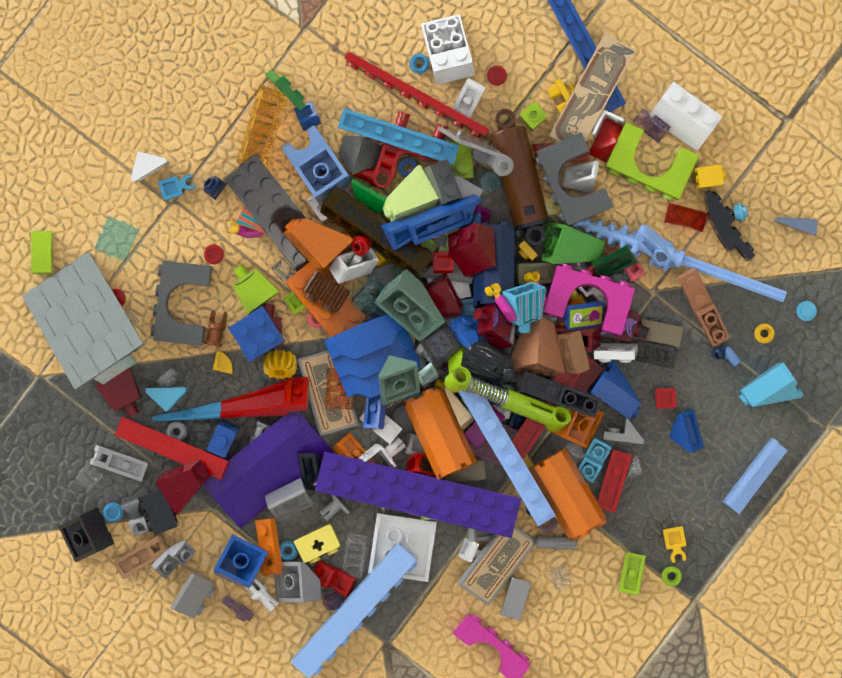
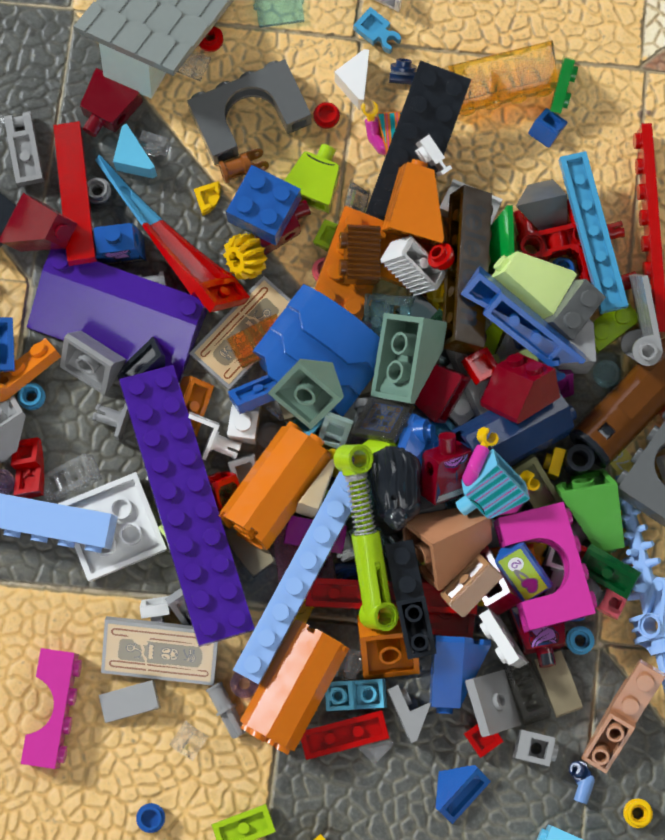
camera: 55 degrees right, 10 degrees down
(200, 222) = (352, 78): none -> white slope
(290, 212) = (430, 153): none -> white plate
(305, 544) = (49, 411): light yellow brick -> none
(317, 160) = (501, 163): medium blue brick -> none
(592, 625) = (150, 818): none -> blue plate
(636, 303) = (588, 640): none -> dark azure plate
(649, 380) = (492, 703): none -> light grey plate
(687, 379) = (523, 748): none -> light grey brick

